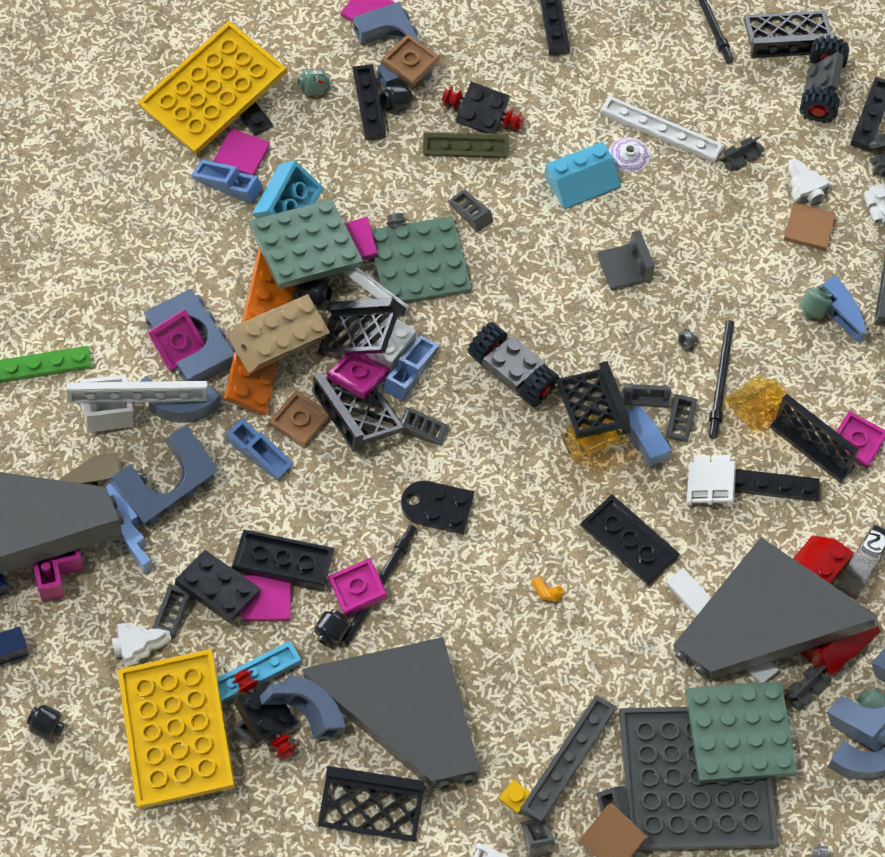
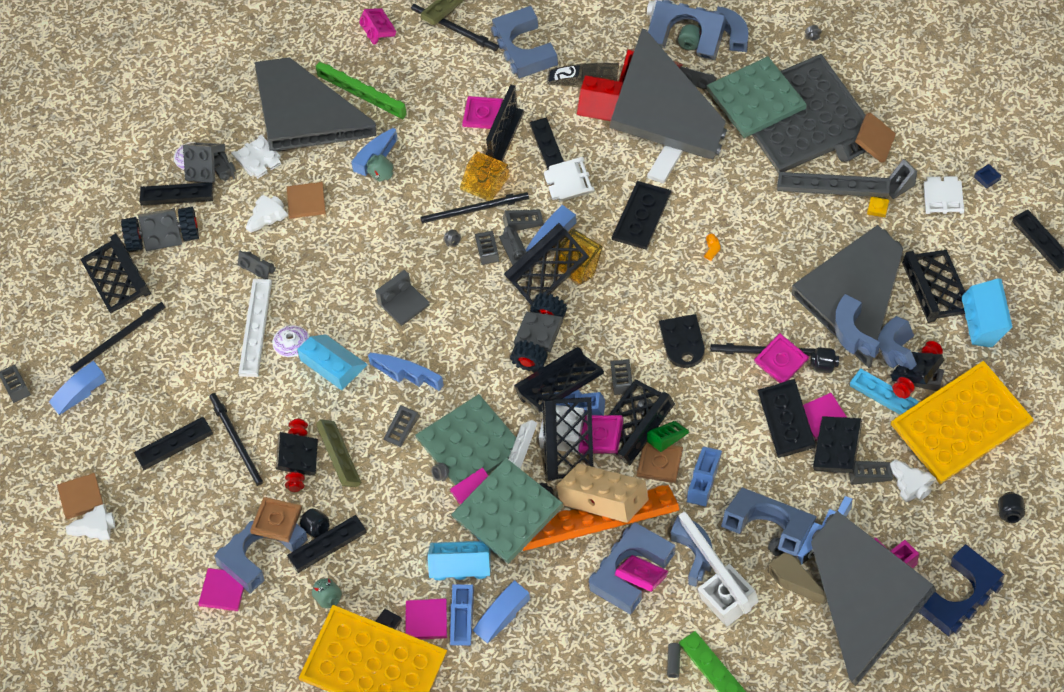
camera: 105 degrees left, 5 degrees down
(72, 334) = (673, 661): none -> dark grey hinge
(209, 213) = (502, 611): none -> medium blue slope
(295, 822) = (986, 312): none -> medium azure slope
(316, 436) = (654, 436): none -> green slope
(347, 654) = (847, 333): none -> sand blue arch
(456, 357) = (559, 370): none -> black fence
(537, 229) = (400, 369): none -> medium blue slope
(572, 68) = (221, 411): none -> black bar
(651, 373) = (488, 257): none -> dark grey slope

